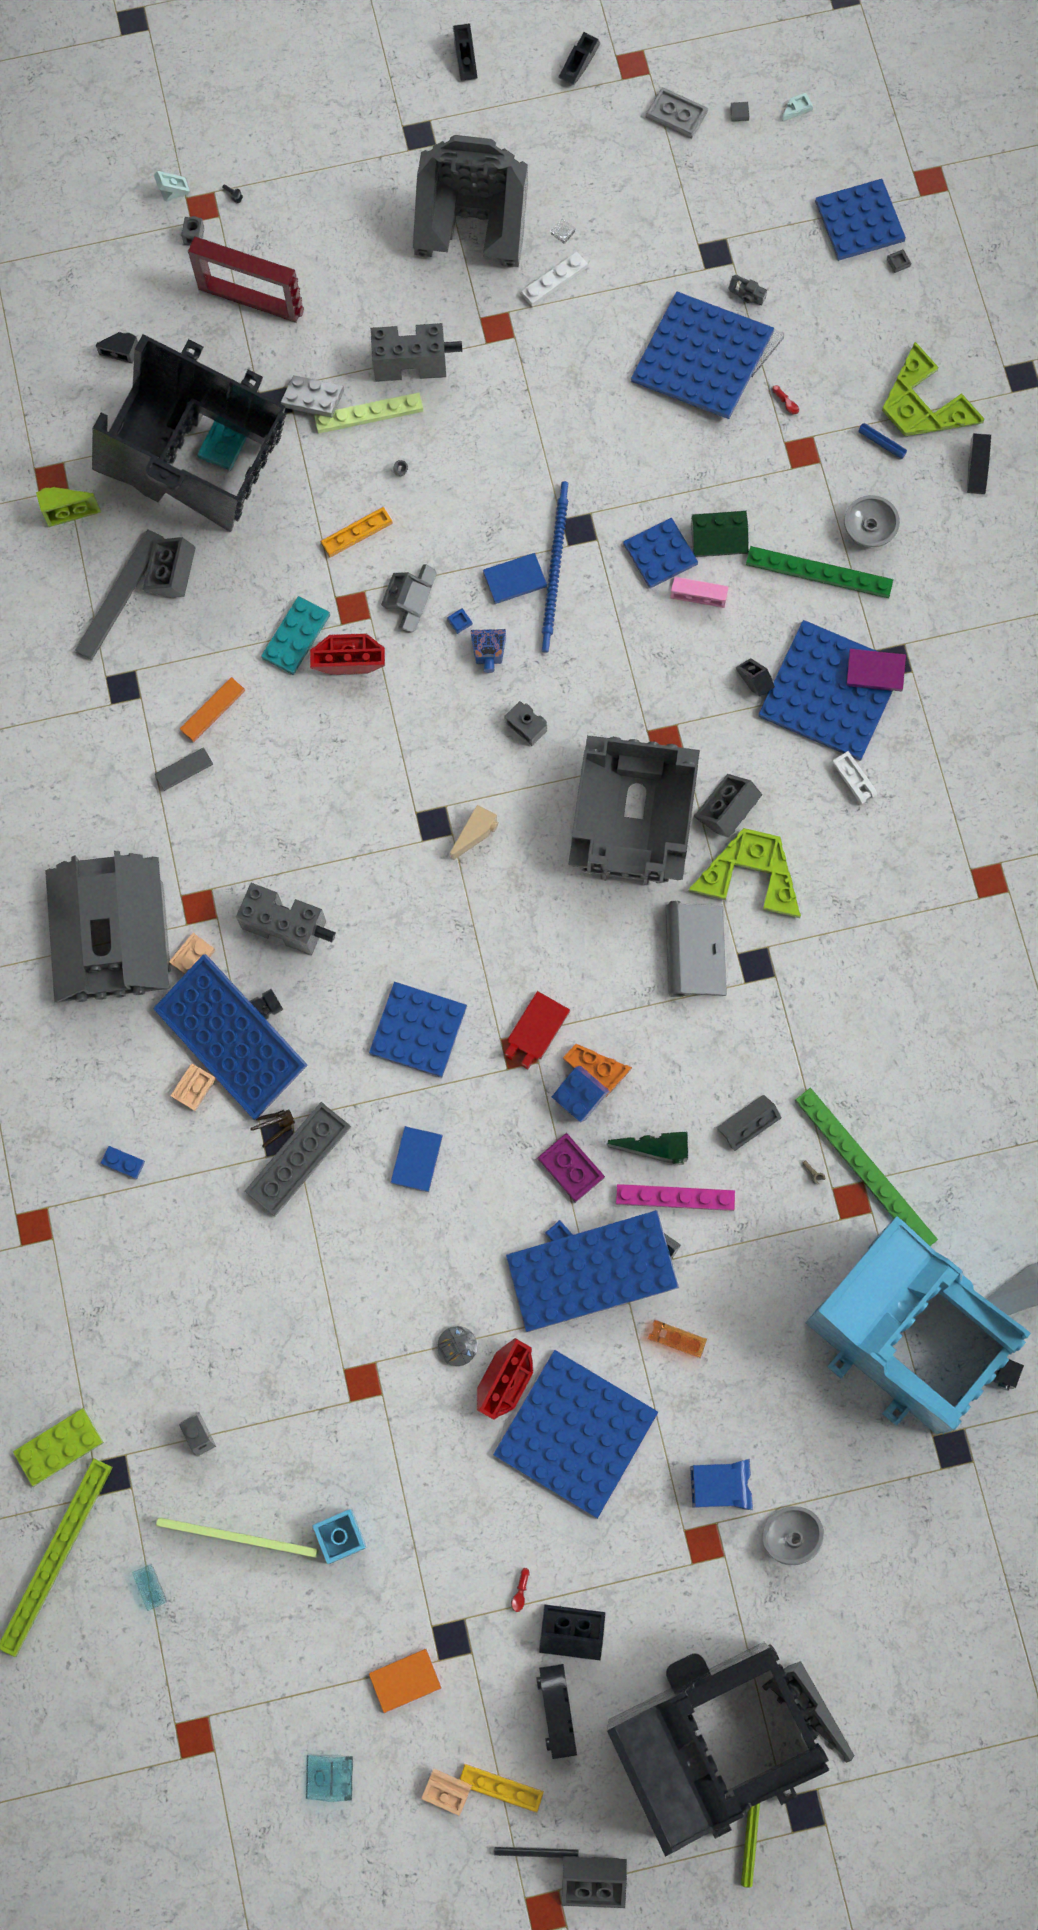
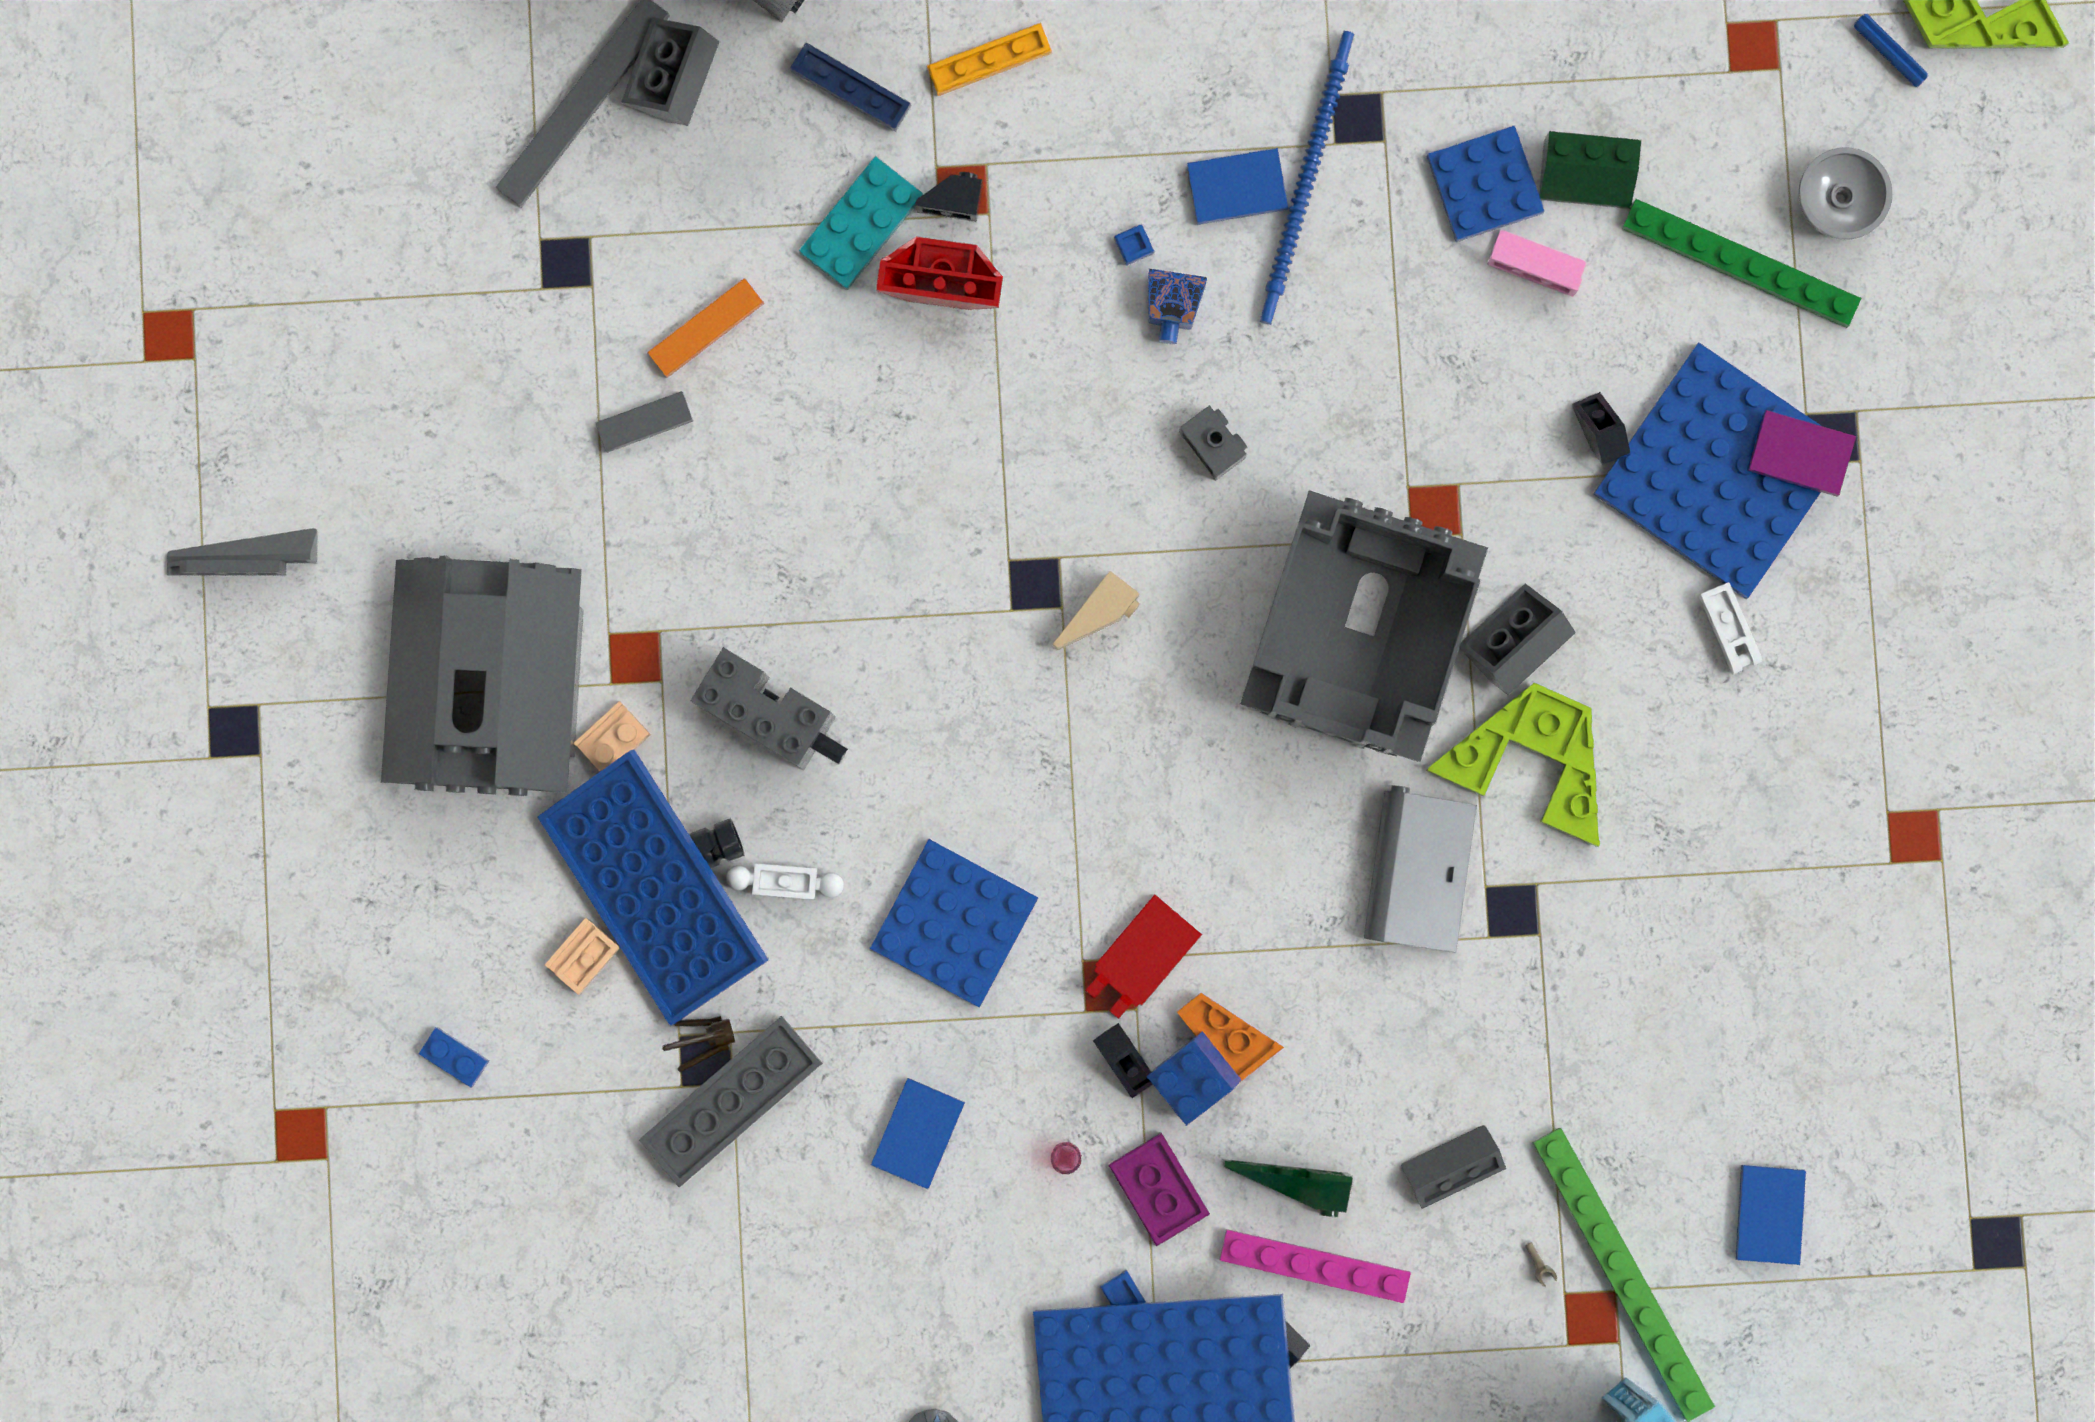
camera: 10 degrees right, 10 degrees up
(277, 560) = (850, 87): none -> dark blue plate
(310, 1021) = (785, 881): none -> white plate
(348, 611) = (953, 198): none -> black slope
(409, 595) = (1059, 187): plate -> none
(512, 1160) = (1062, 1156): none -> clear pink wheel
(536, 1092) = (1124, 1060): none -> black slope
(948, 1118) = (1770, 1214): none -> blue tile
(978, 463) = (2043, 120): black slope -> none

